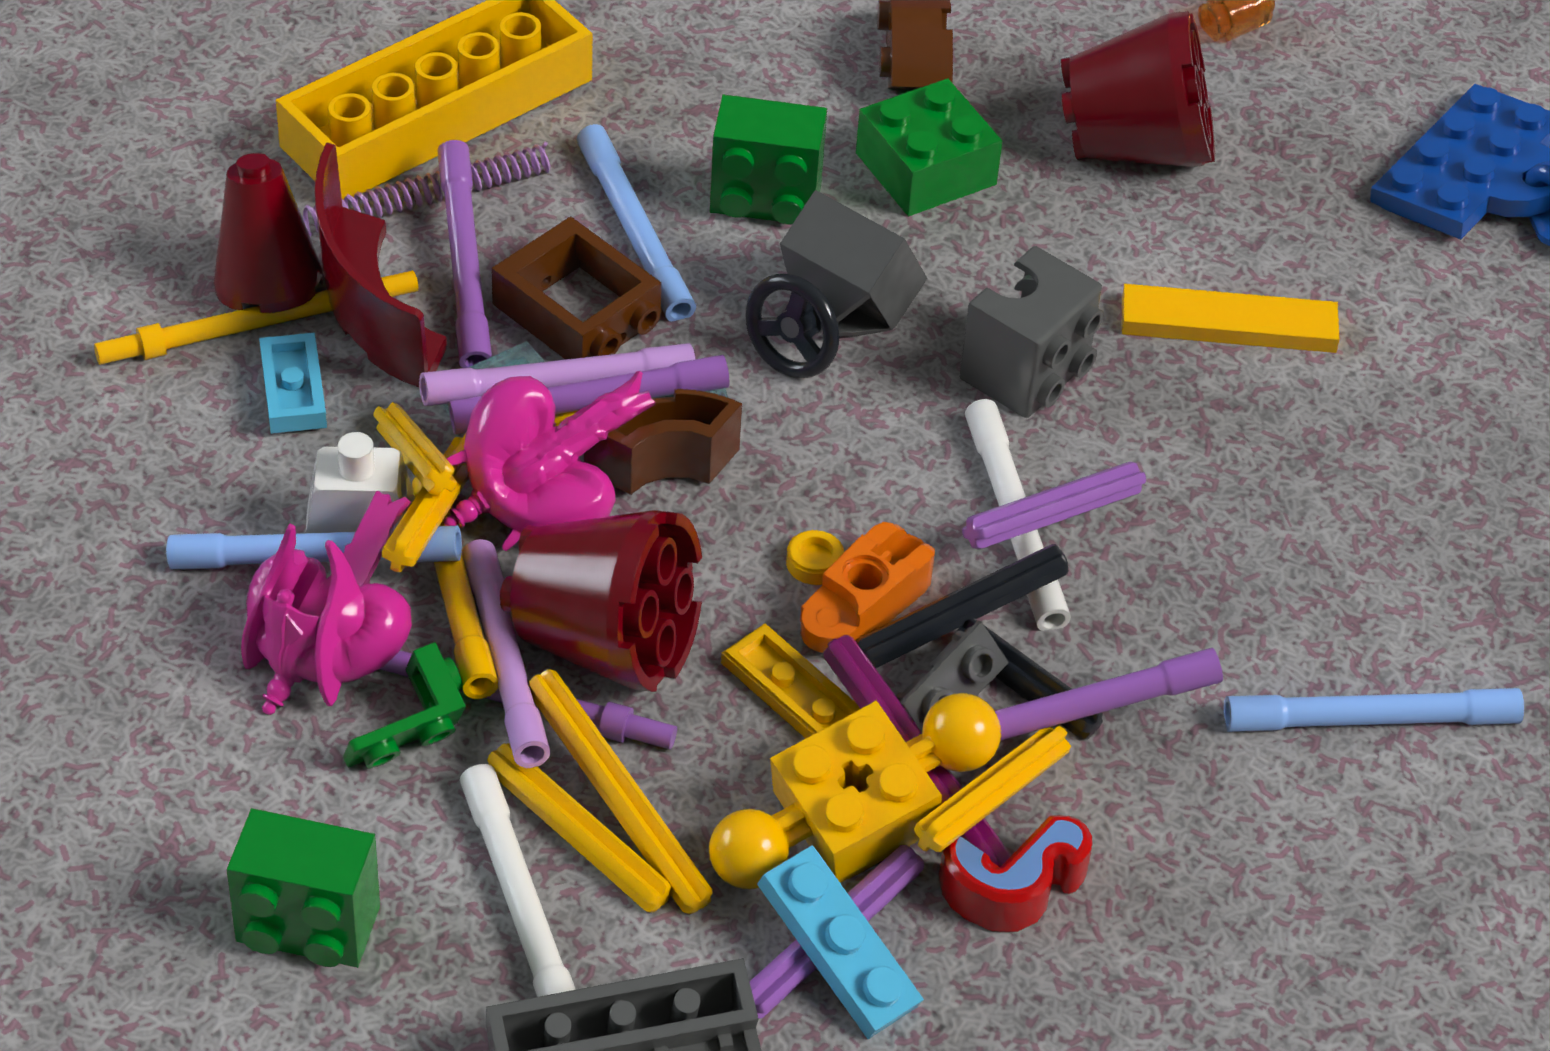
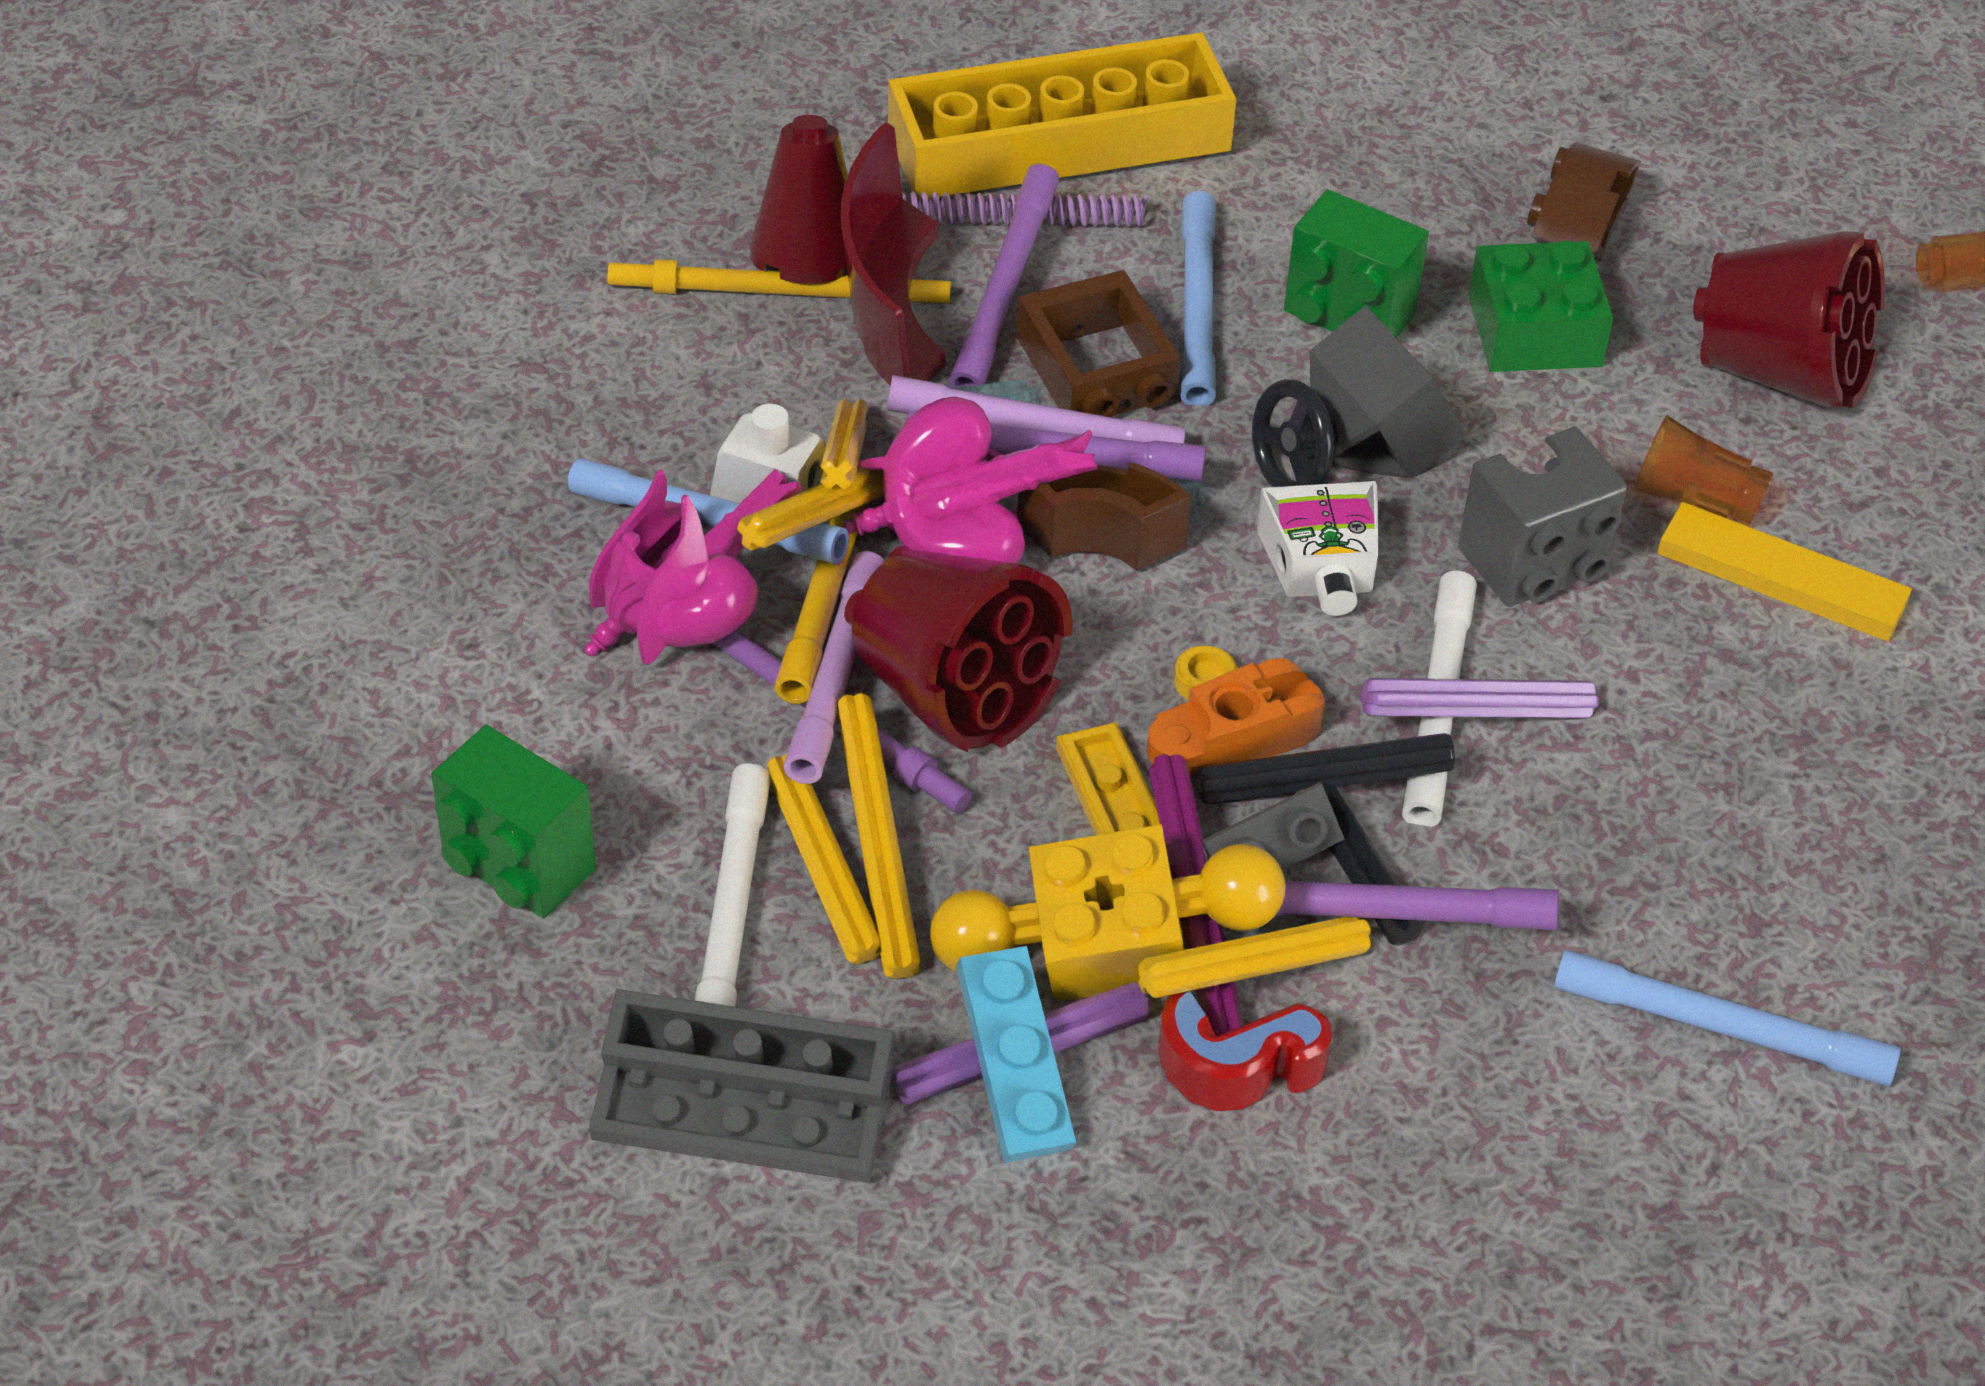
camera: 25 degrees right, 0 degrees up
(293, 383) = (775, 353): medium azure plate -> none
(438, 688) = (725, 711): green bracket -> none
(856, 408) = (1322, 540): none -> white torso
(1132, 254) = (1702, 474): none -> clear orange plant

